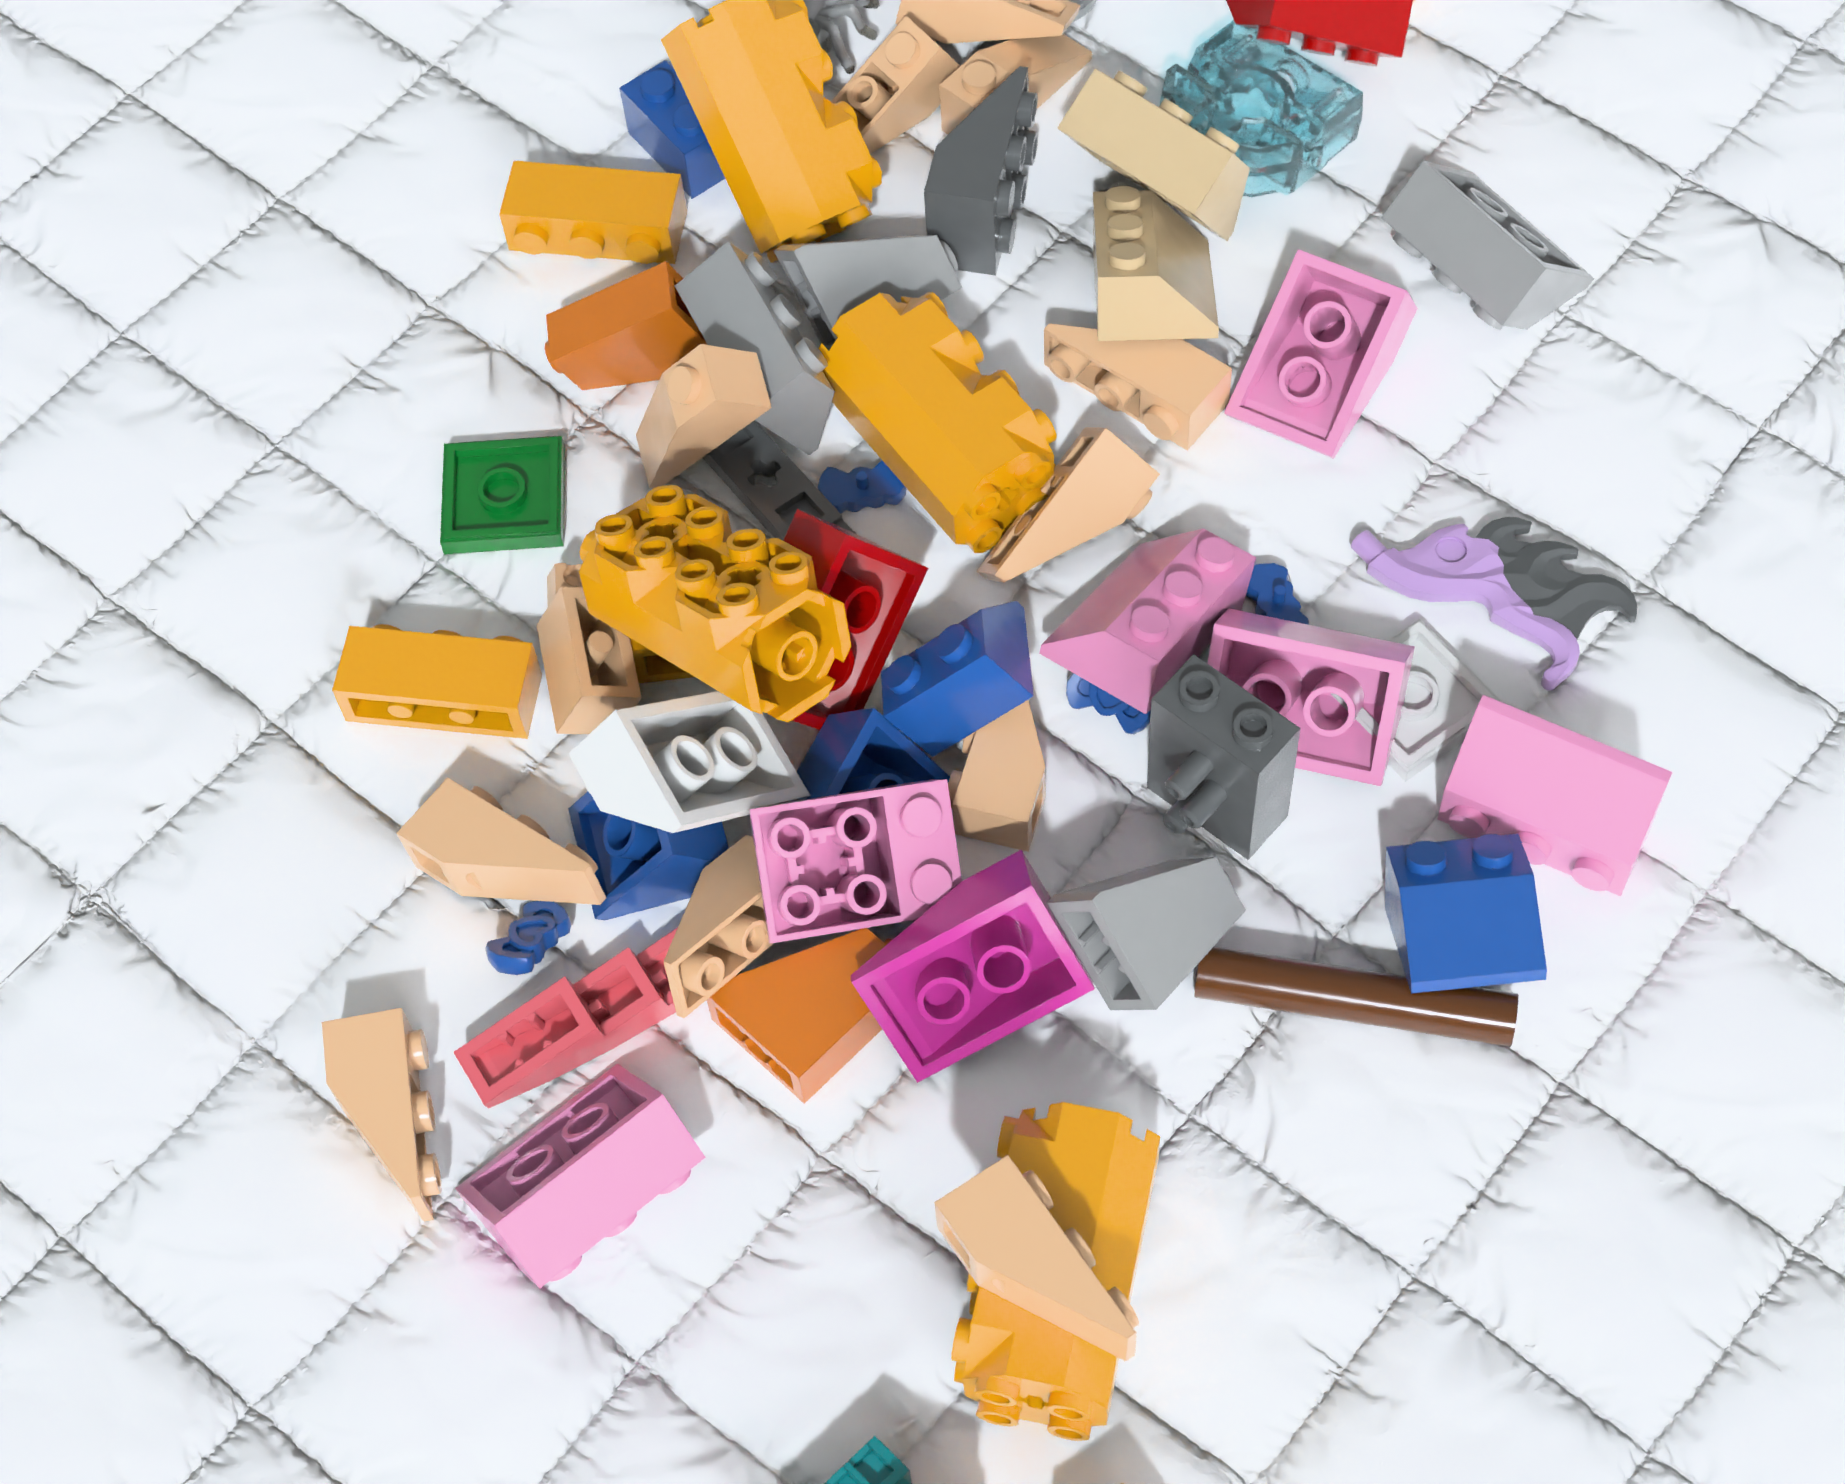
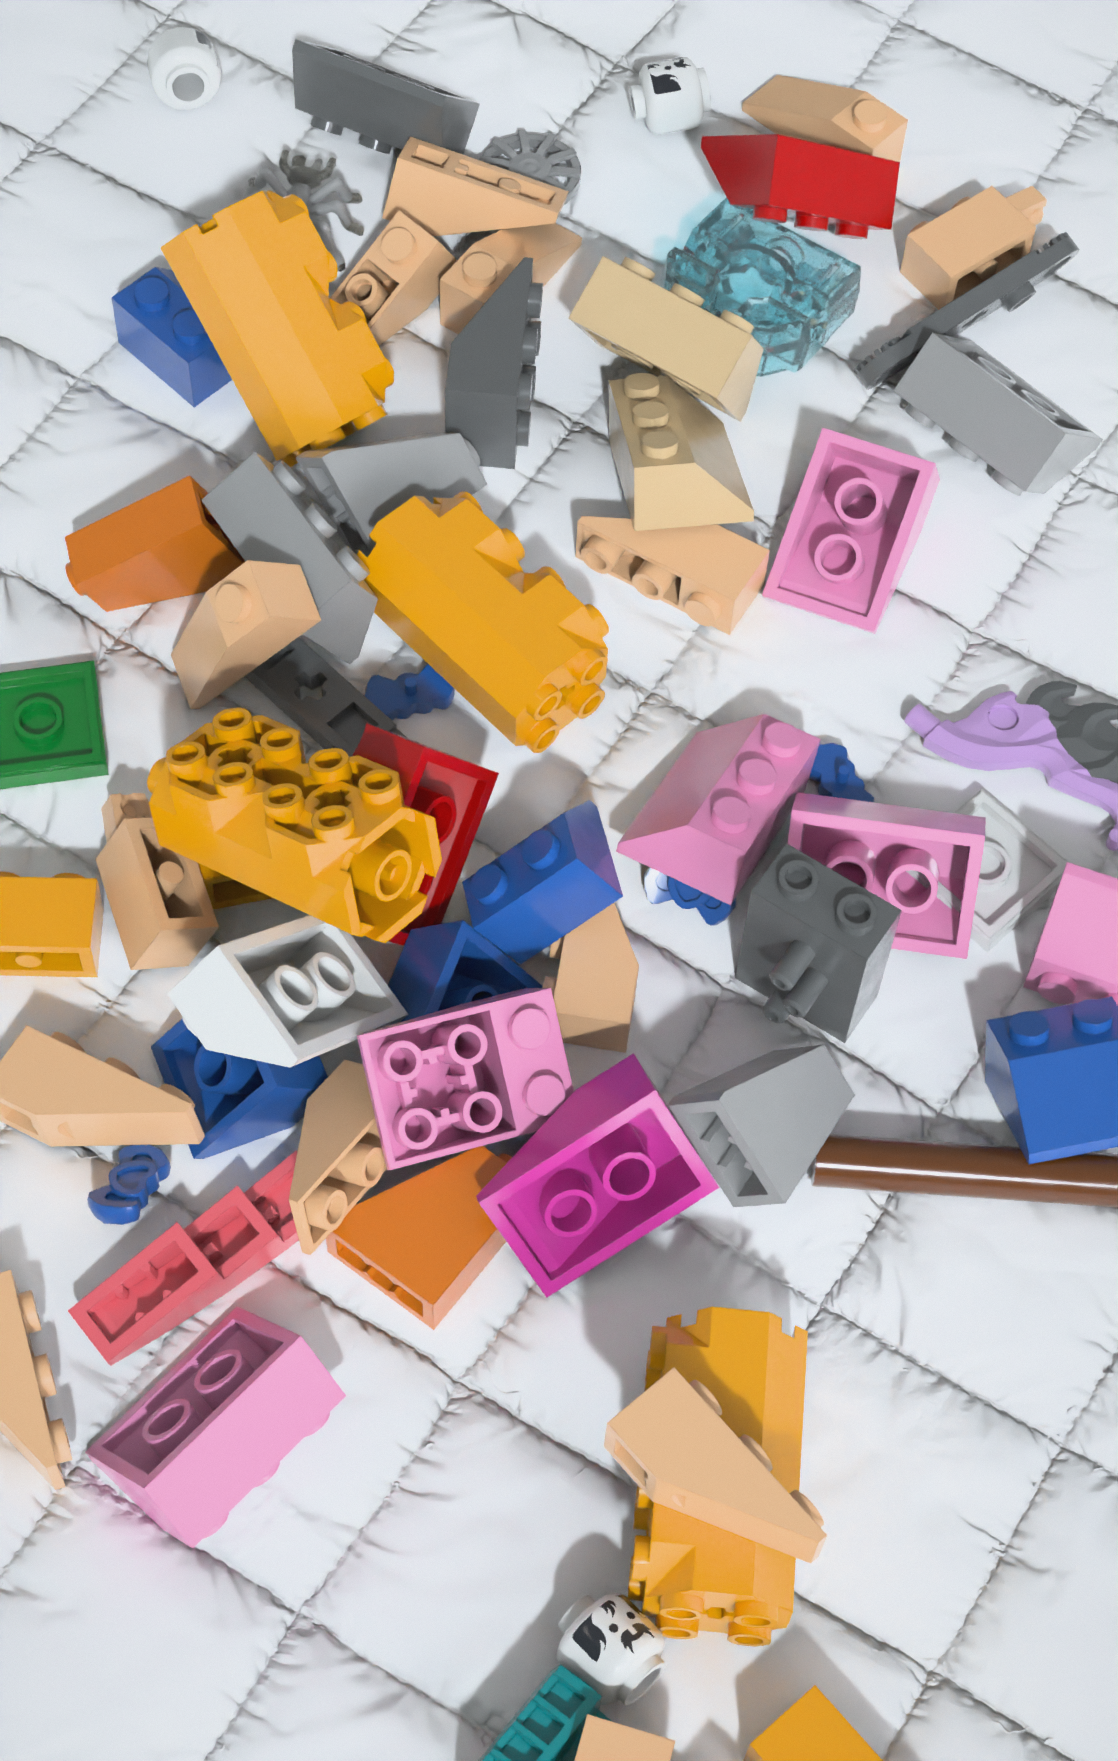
camera: 15 degrees left, 0 degrees up
(593, 212) = (96, 427): light orange brick -> none
(930, 1426) = (611, 1647): none -> white head
(1089, 493) = (645, 685): light nougat slope -> none
(1484, 77) = (971, 242): none -> light nougat hinge
(1512, 121) = (1006, 288): none -> dark grey piece

